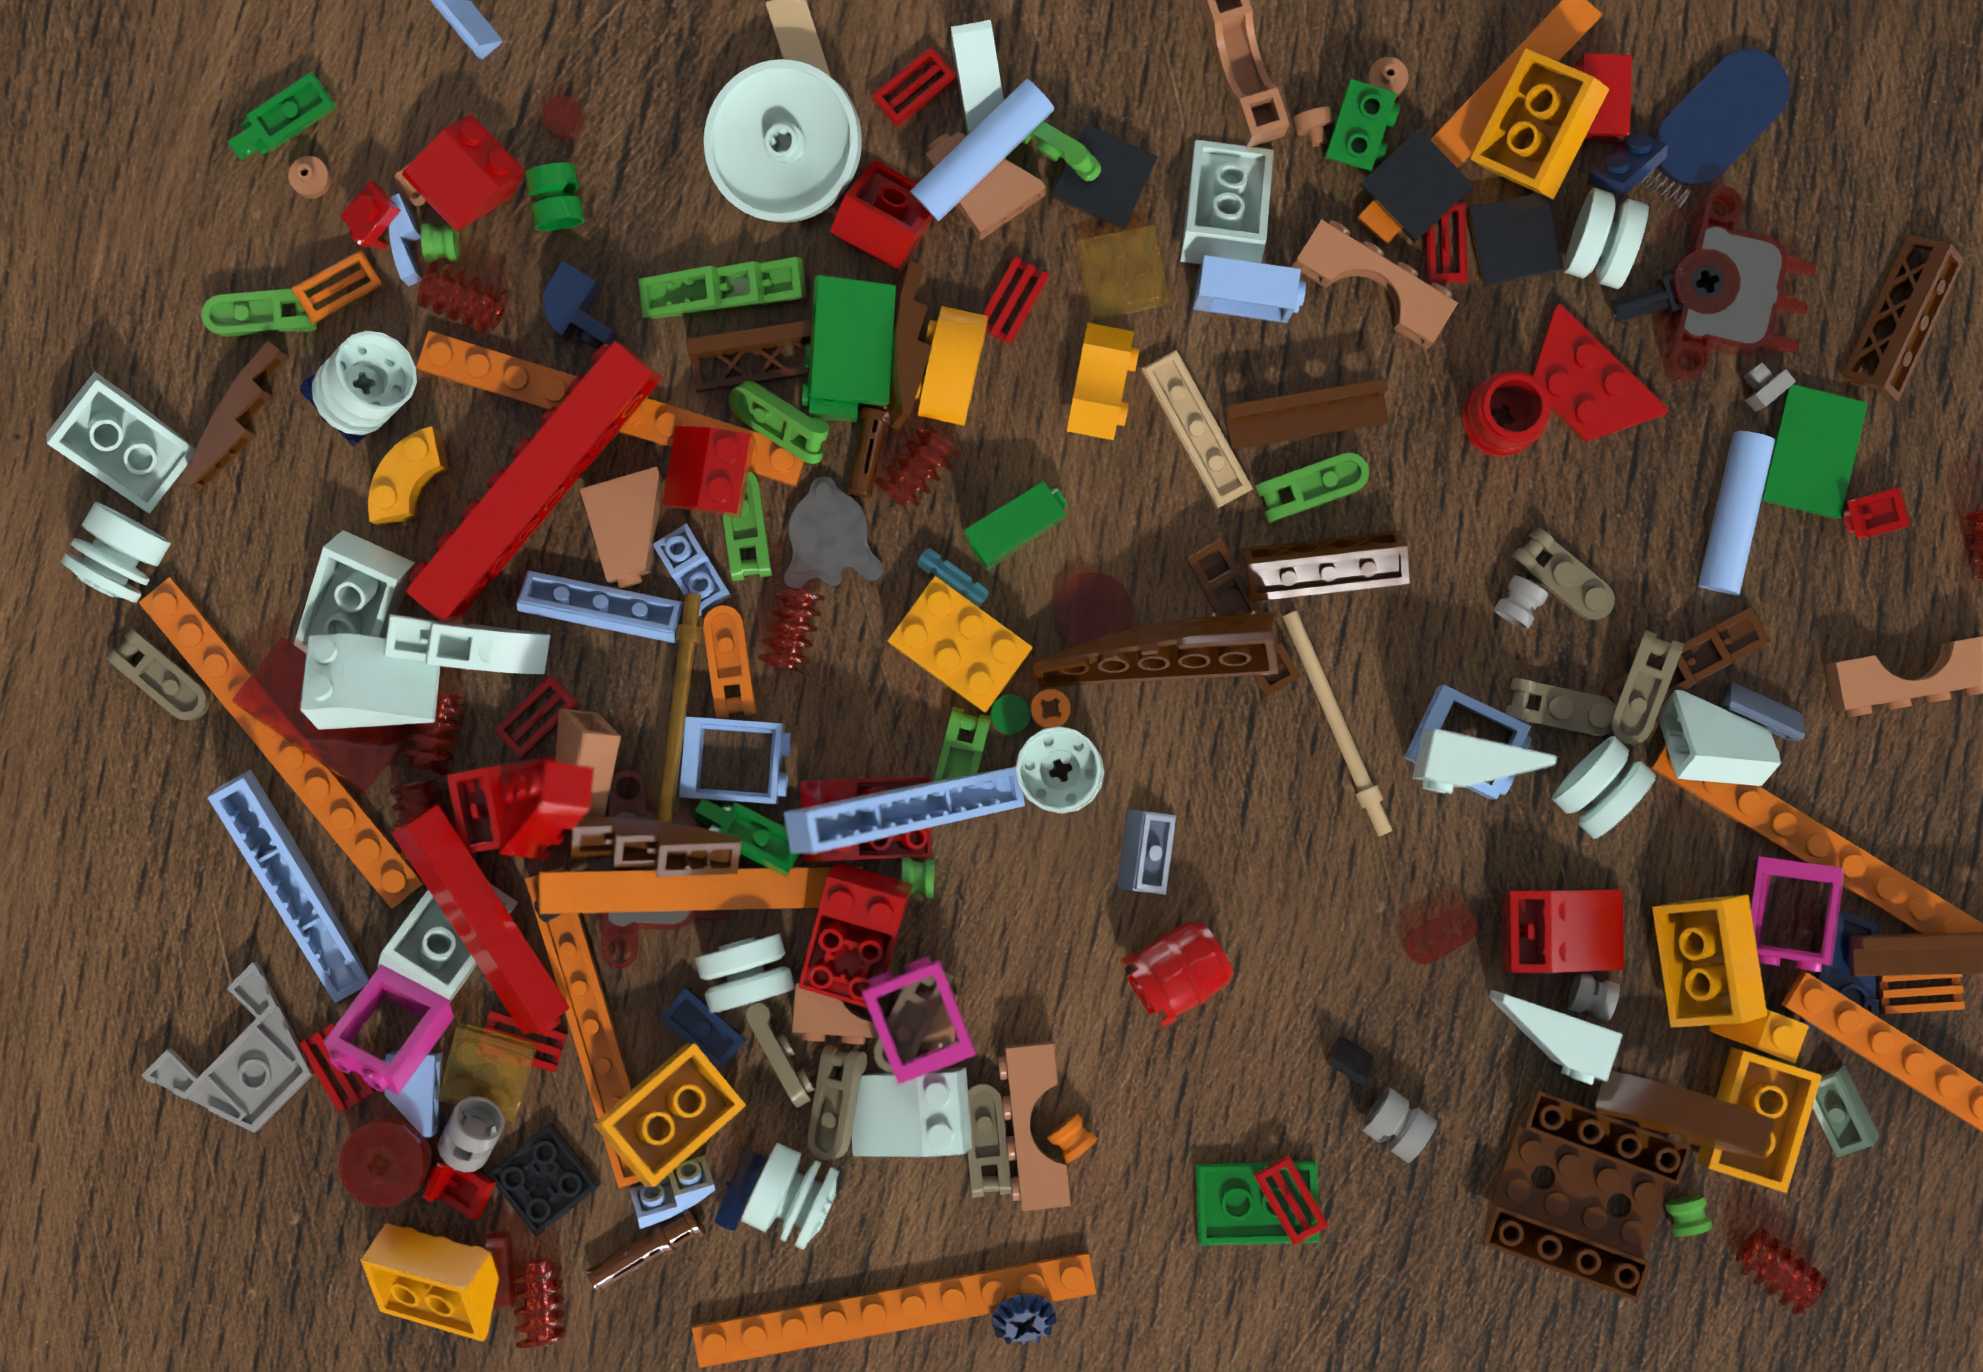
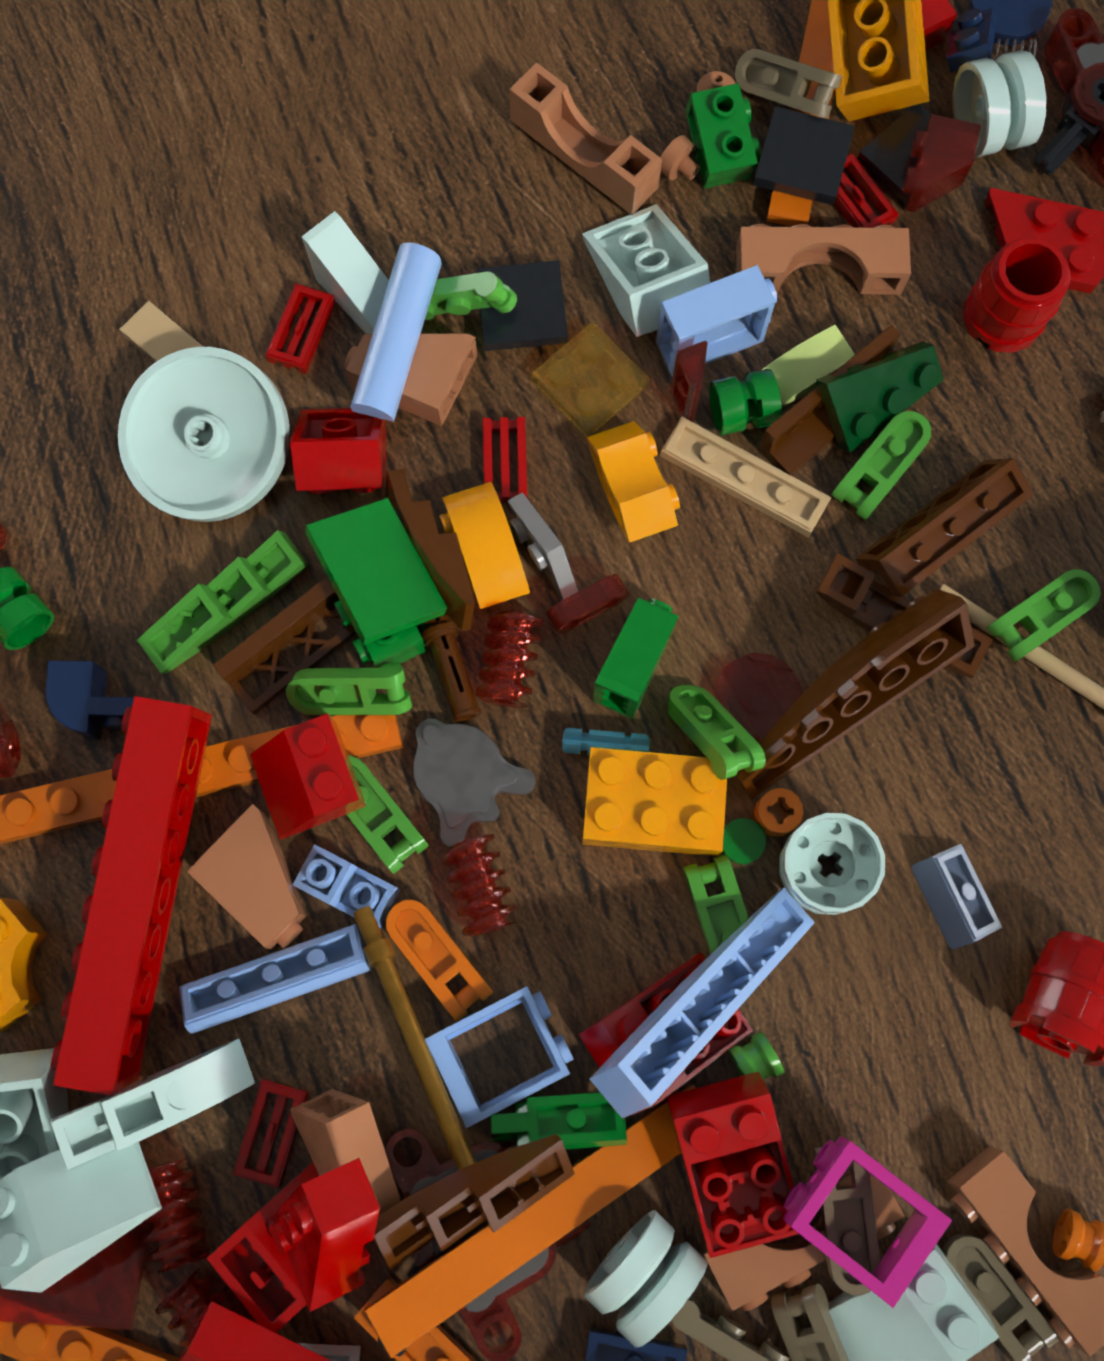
camera: 30 degrees left, 10 degrees down
(994, 400) = (542, 545): none -> light grey wing
(1005, 460) = (587, 603): none -> clear red beam
(1036, 618) = (714, 731): none -> bright green plate
(1195, 326) = (688, 378): none -> clear red slope
(1231, 369) = (730, 405): none -> green wheel
(1303, 368) = (808, 361): none -> yellowish green slope
(1337, 427) = (874, 394): none -> dark green wing
(1358, 681) = (1047, 612): none -> bright green plate
(1445, 110) = (786, 81): none -> dark tan plate
(1524, 262) = (943, 159): none -> clear red slope

